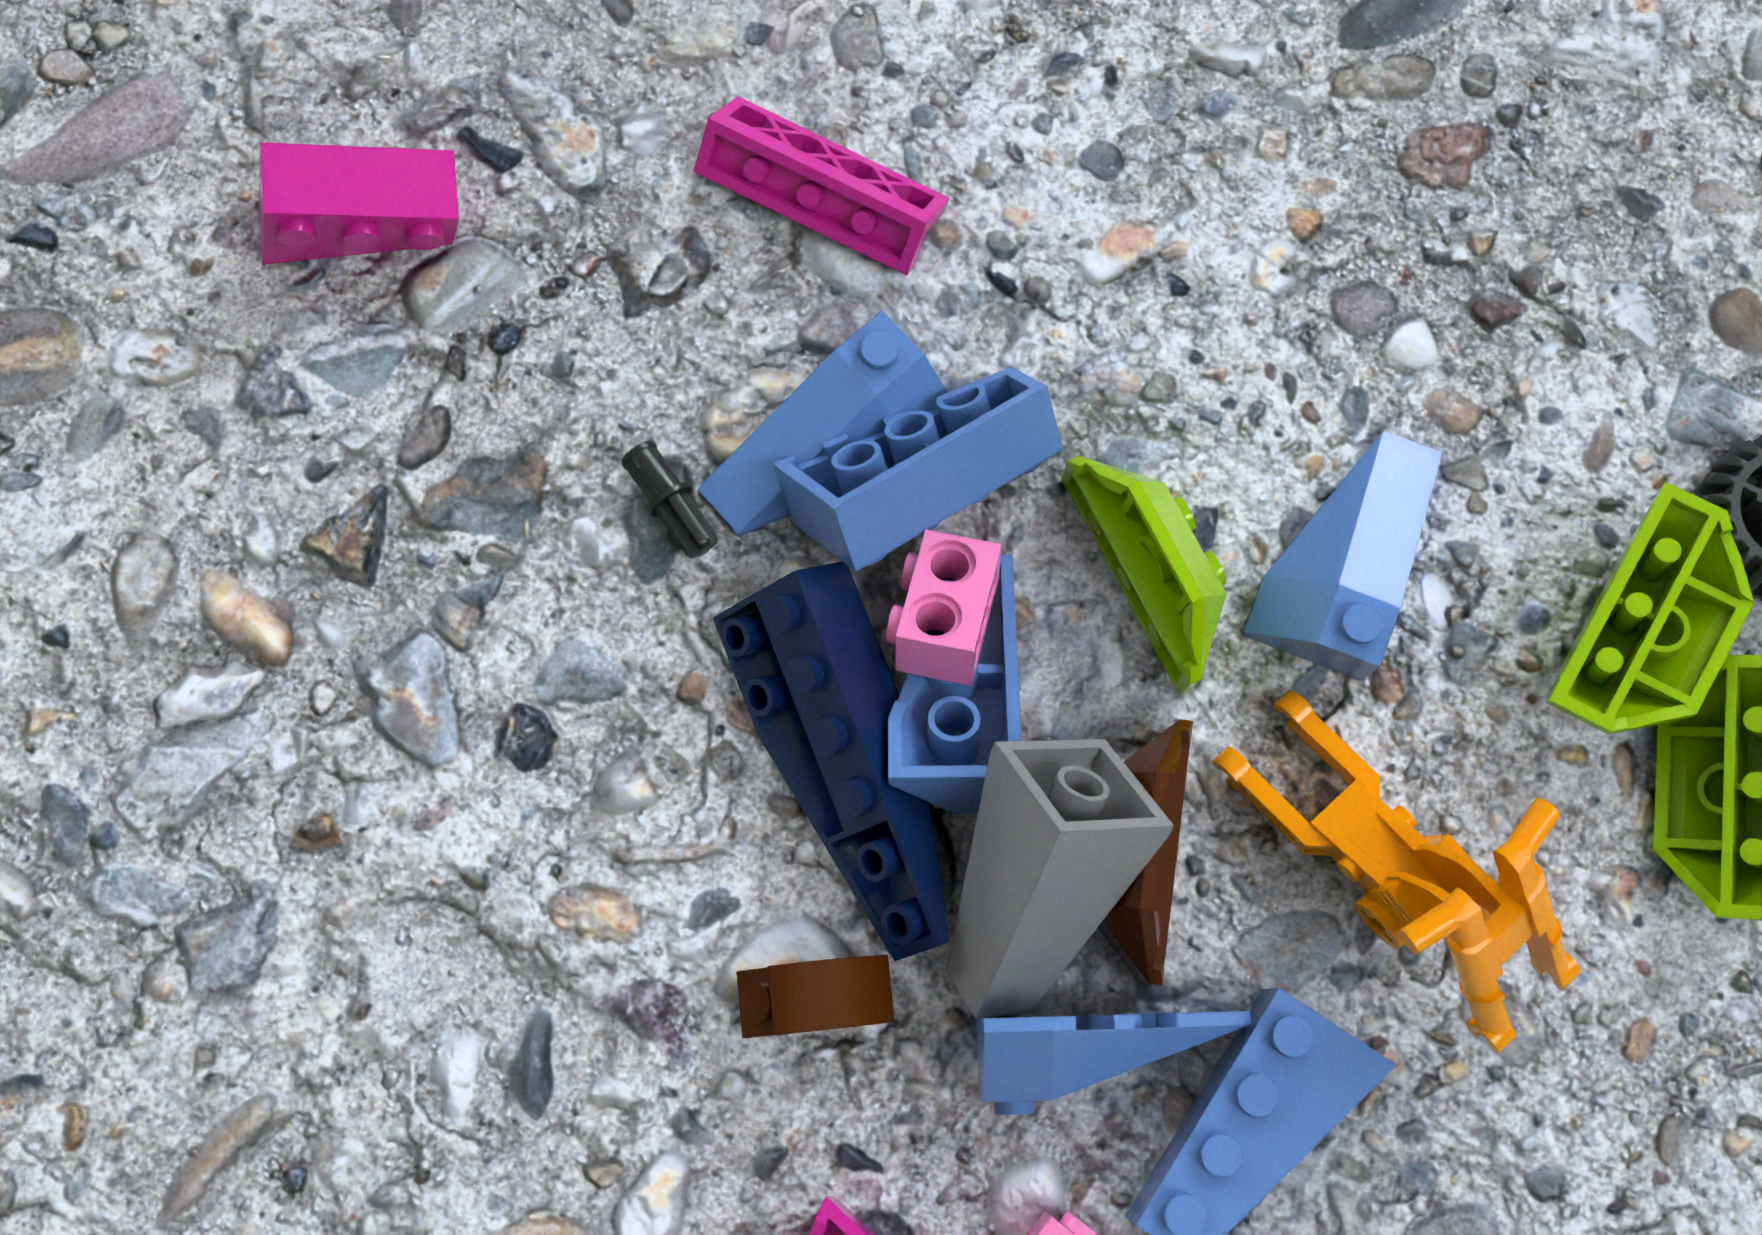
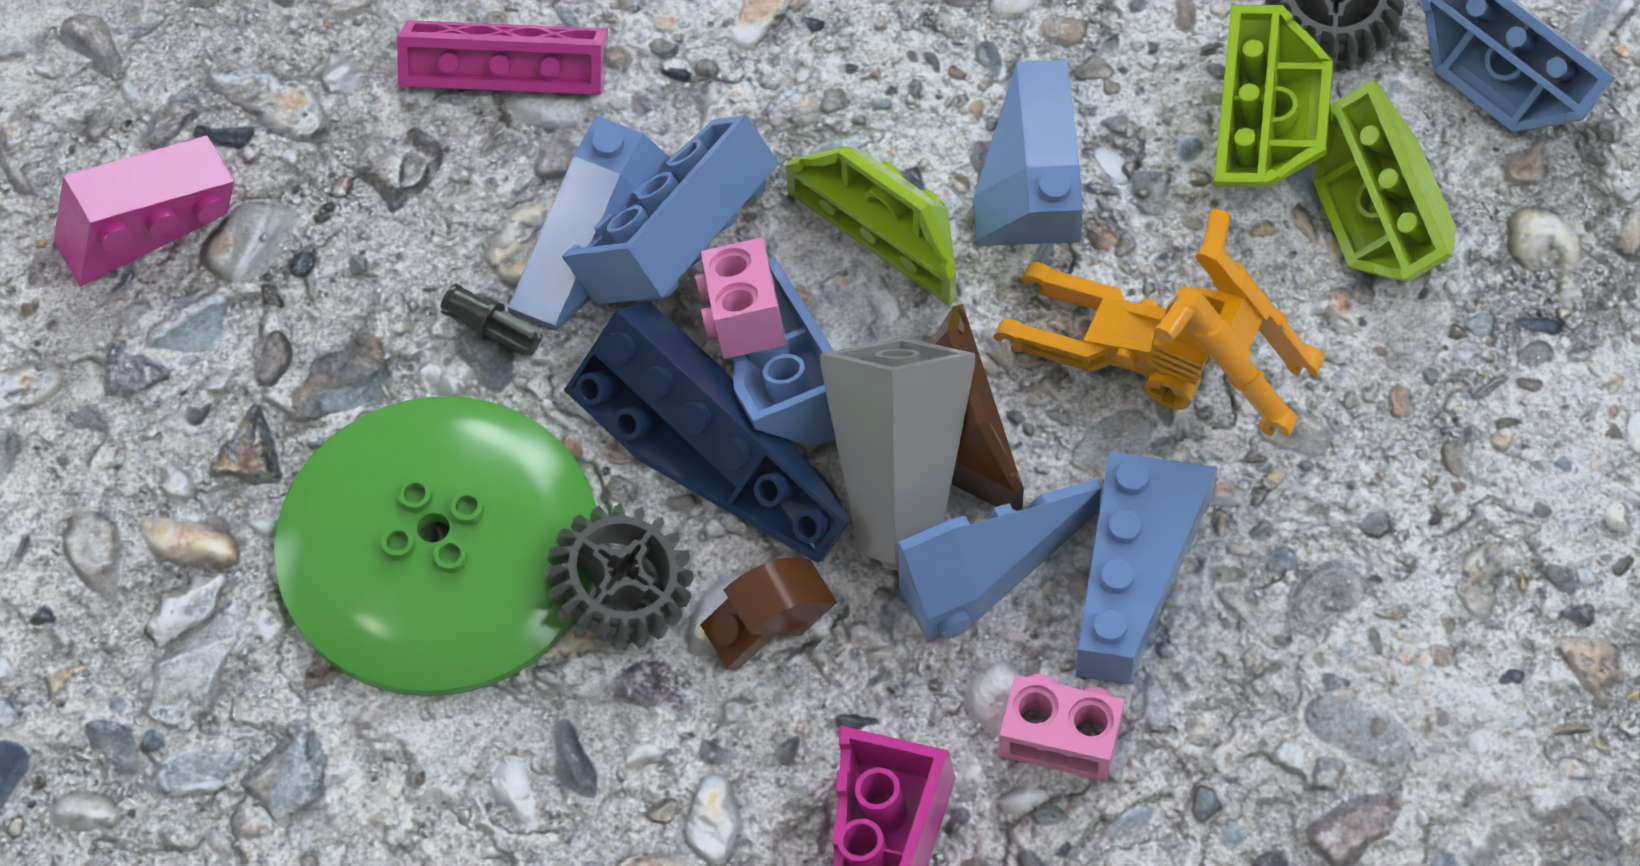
camera: 20 degrees left, 15 degrees down
(517, 830) = (419, 610): none -> bright green dish
(640, 901) = (633, 590): none -> dark grey gear

